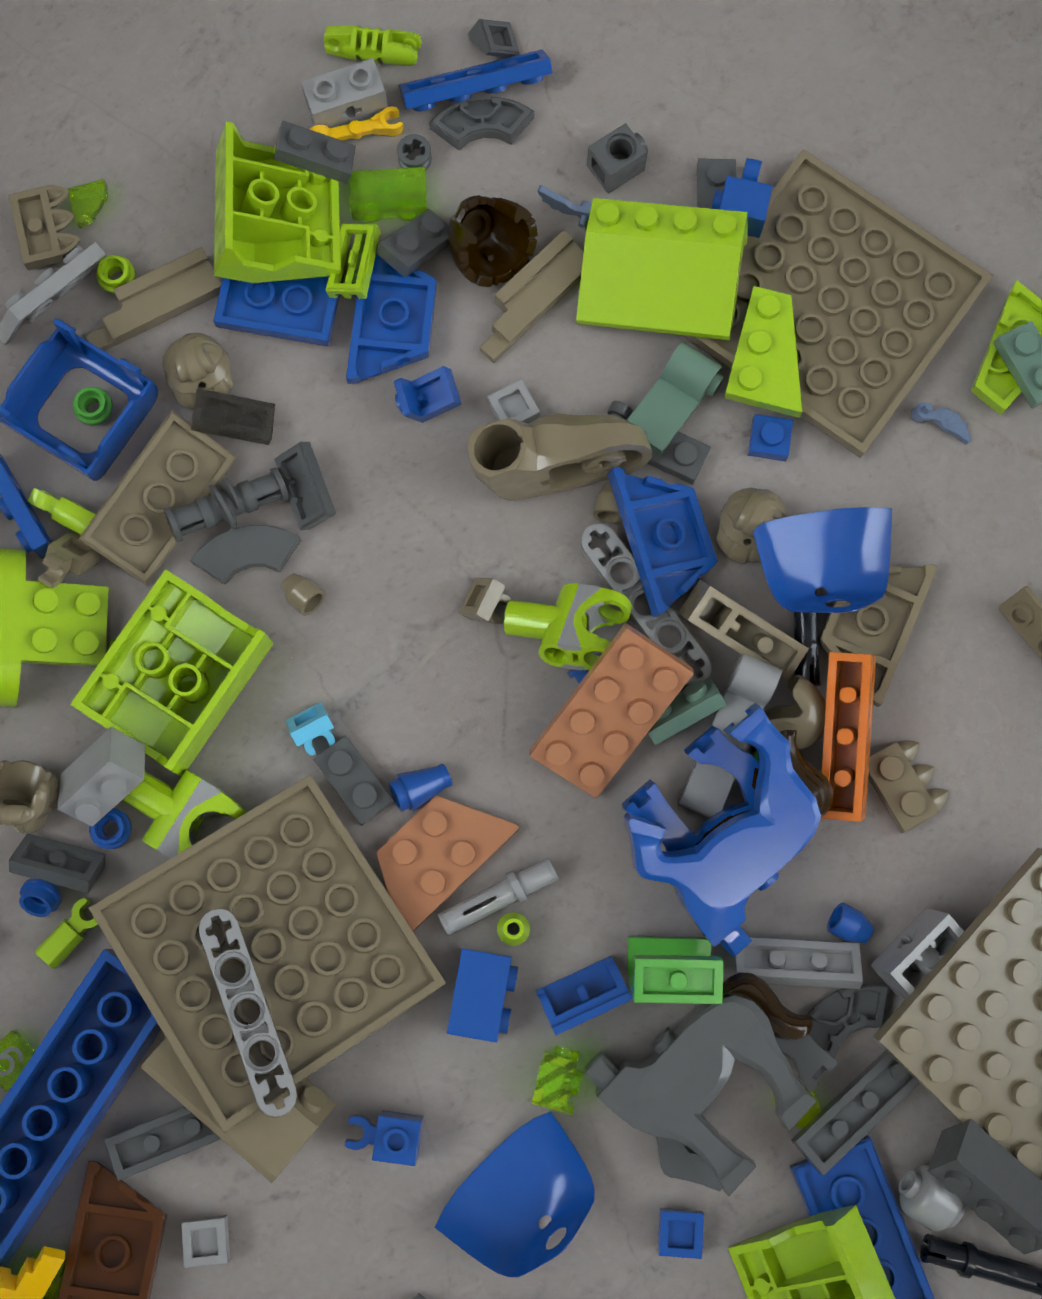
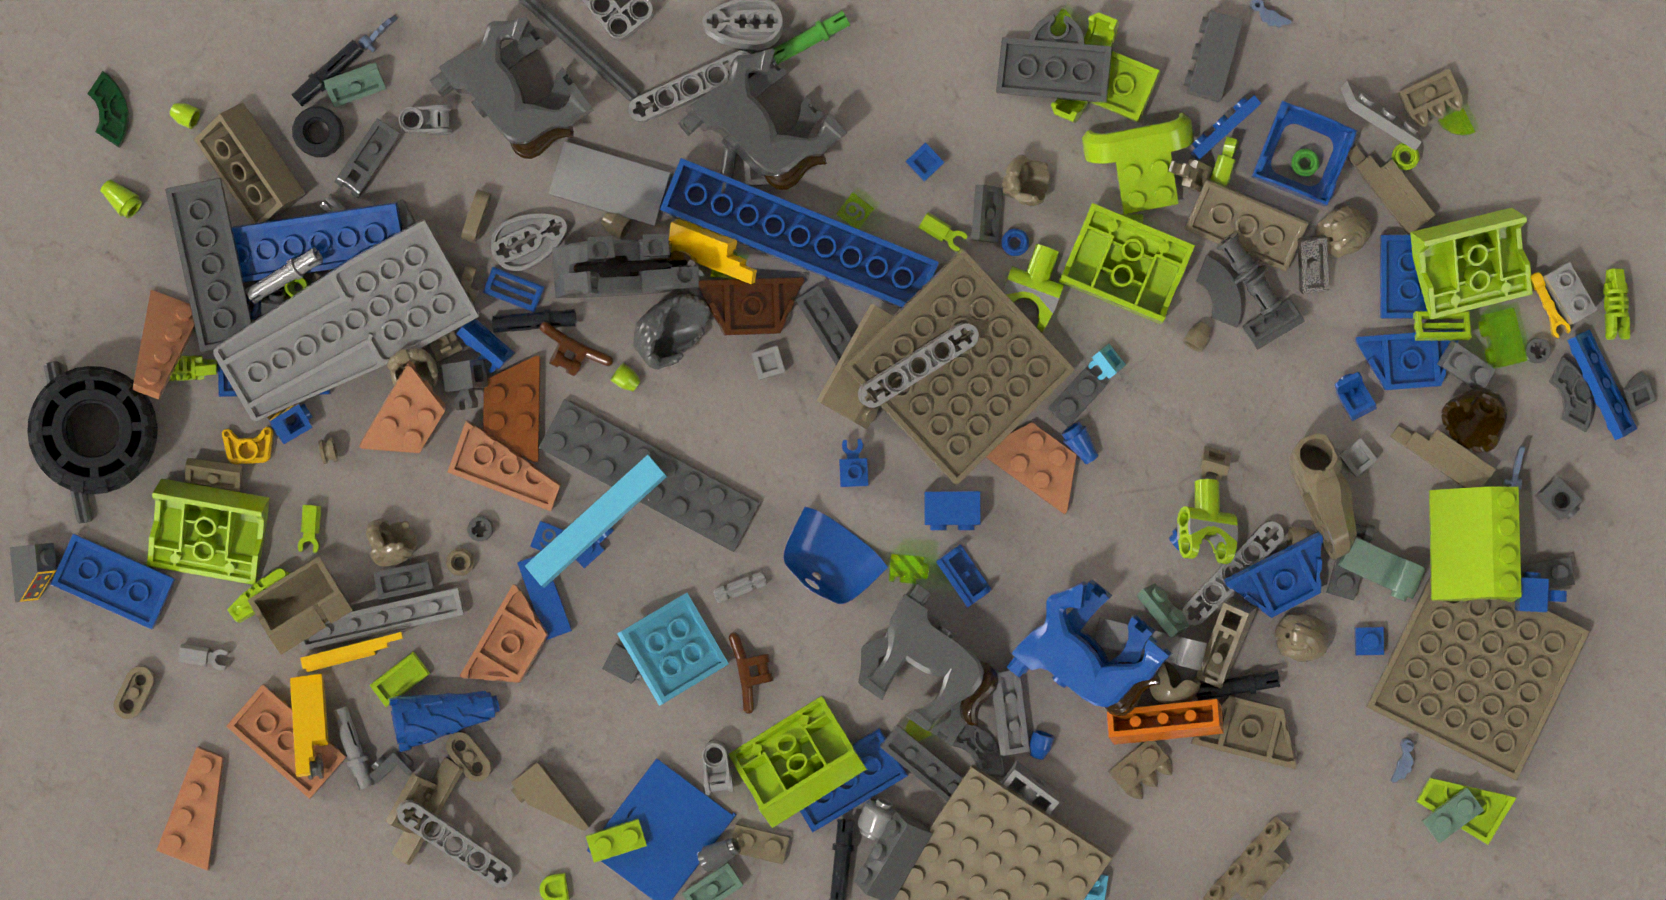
camera: 75 degrees right, 10 degrees up
(39, 897) = (962, 207): blue plate -> none
(101, 777) = (1048, 233): light grey brick -> none
(314, 152) = (1519, 281): dark grey plate -> none
(508, 891) = (1024, 518): light grey pin -> none
(513, 917) = (991, 522): lime hose -> none
(611, 711) = (1152, 561): nougat plate -> none
(674, 970) = (991, 630): bright green panel -> none
(680, 1233) = (827, 663): blue plate -> none
(766, 356) = (1424, 628): lime wing -> none
(829, 550) = (1292, 691): blue piece -> none

